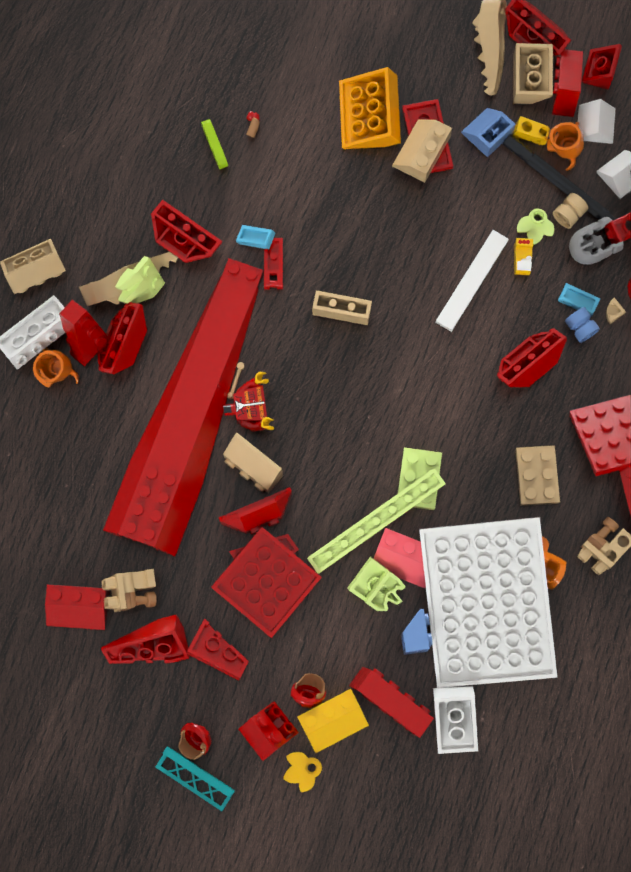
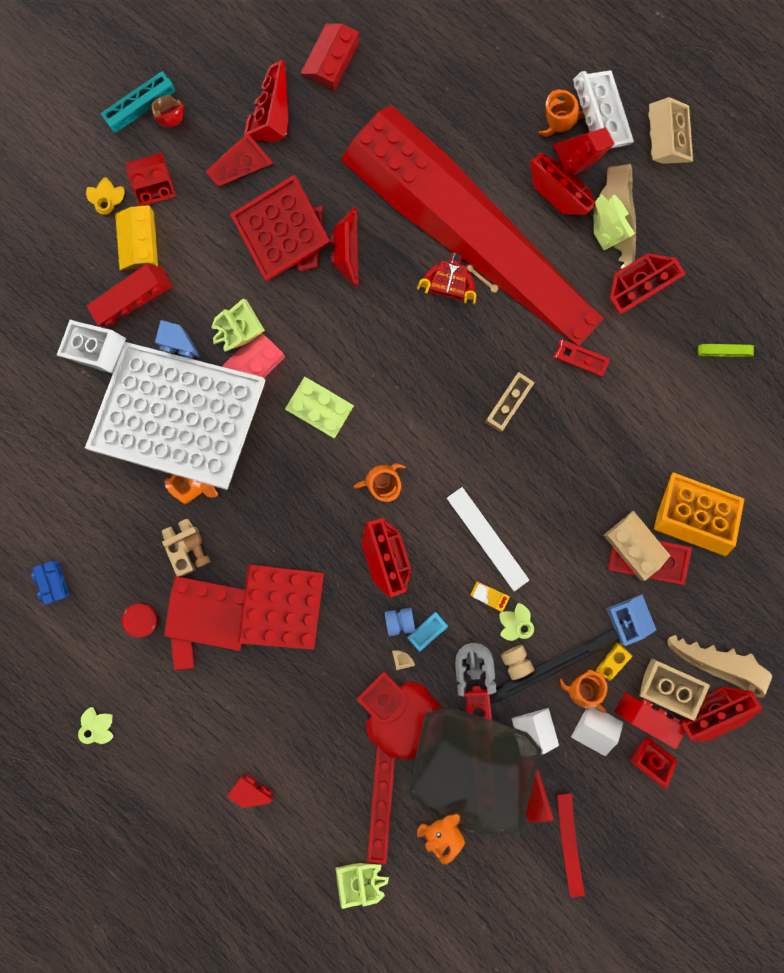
camera: 110 degrees right, 10 degrees up
(124, 587) = (325, 98): tan hips -> none
(252, 464) = (394, 259): tan slope -> none
(254, 125) = (731, 397): medium nougat arm -> none
(255, 237) = (614, 351): medium azure tile -> none
(309, 691) = (168, 226): piece -> none
(376, 521) = (294, 350): yellowish green plate -> none
(464, 390) = (383, 482): none -> orange piece
(537, 475) = (277, 517): tan plate -> none

